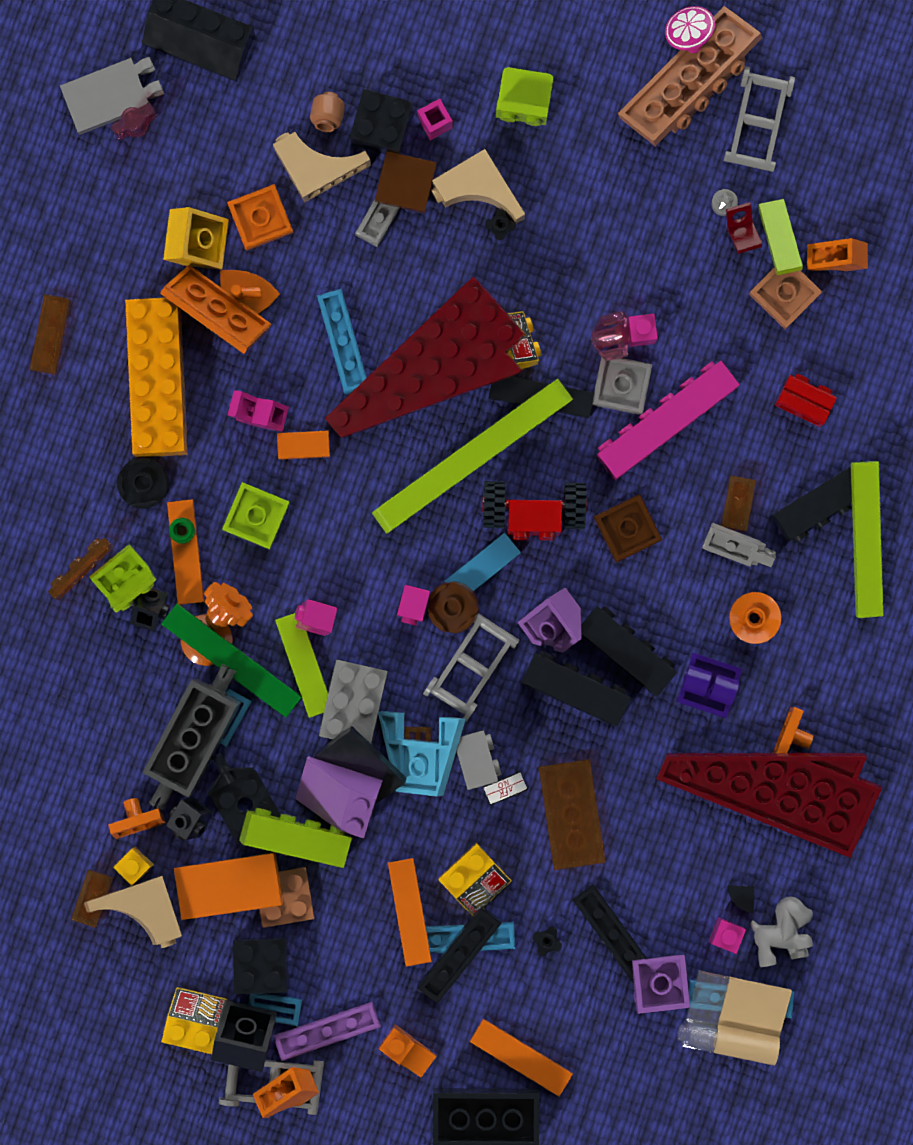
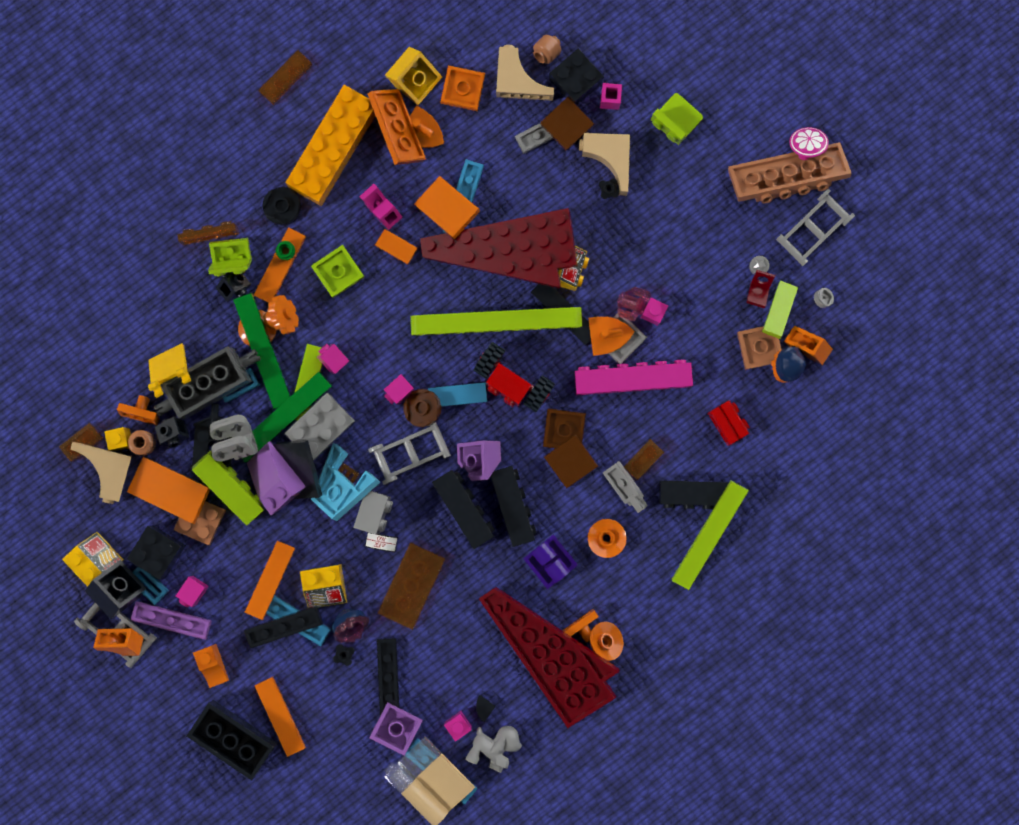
camera: 35 degrees right, 0 degrees up
(135, 749) = (167, 366): none -> yellow flag
(154, 856) = (136, 440): none -> nougat head
(277, 778) = (242, 441): none -> light grey piece
(302, 720) = (289, 411): none -> green tile
(330, 983) = (191, 591): none -> dark pink brick
(332, 363) = (447, 207): none -> orange tile
(532, 903) = (349, 625): none -> clear pink hair
(607, 389) = (608, 334): none -> orange shield
(658, 558) = (571, 461): none -> reddish brown tile
(820, 192) = (823, 297): none -> light grey tile
(830, 292) = (788, 364): none -> dark blue hair
(830, 731) = (612, 640): none -> orange dish

